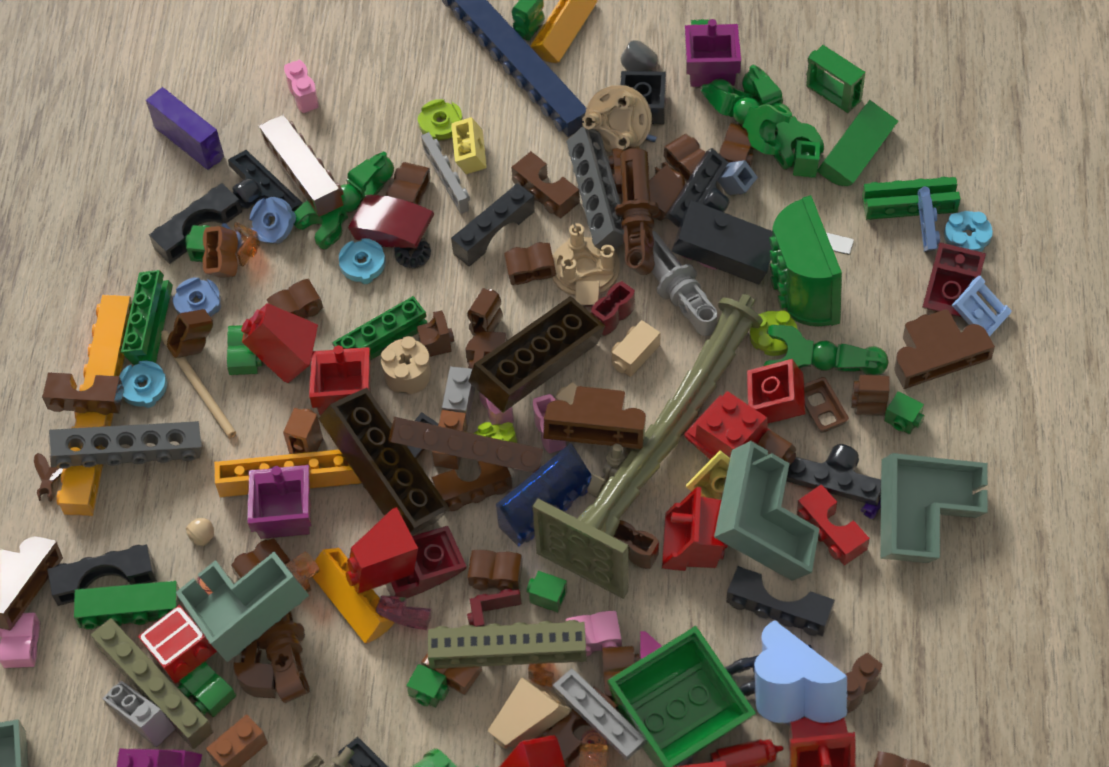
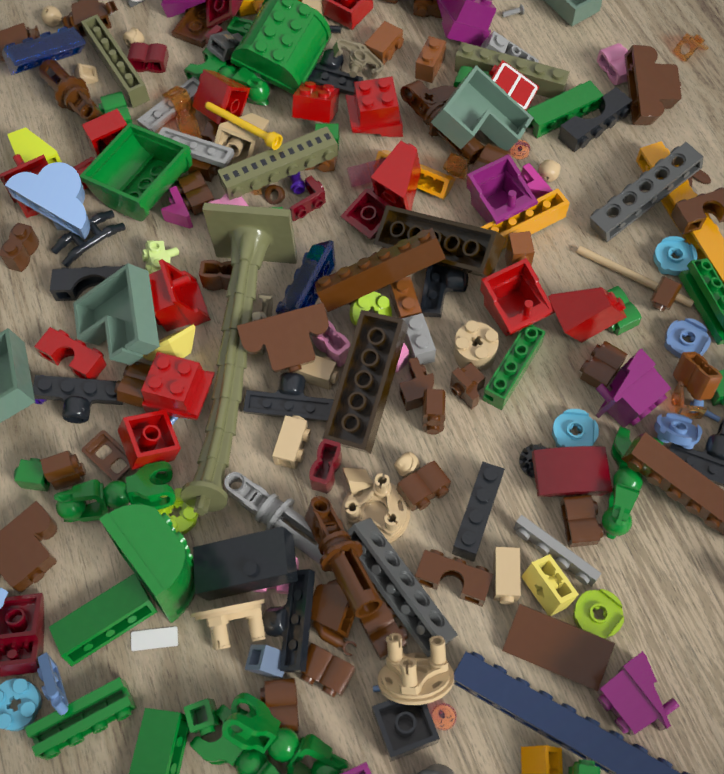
camera: 155 degrees right, 5 degrees up
(230, 516) = (535, 181): none -> dark pink slope
(293, 256) = (634, 391): none -> magenta piece
(351, 687) = (375, 108): none -> red piece
(417, 726) = (315, 102): none -> red brick
(454, 49) = (635, 698): none -> magenta piece
(489, 108) = (558, 647): none -> reddish brown tile
(495, 570) = (319, 225): reddish brown brick -> none
(497, 168) = (506, 575): none -> tan brick
(503, 654) = (272, 139): none -> yellow piece
(535, 287) = (407, 464): none -> tan piece
(611, 377) = (288, 401): none -> black plate
(699, 598) = (154, 252): none -> yellowish green brick
(755, 204) = (219, 618): none -> tan piece
(878, 260) = (102, 620): none -> green brick

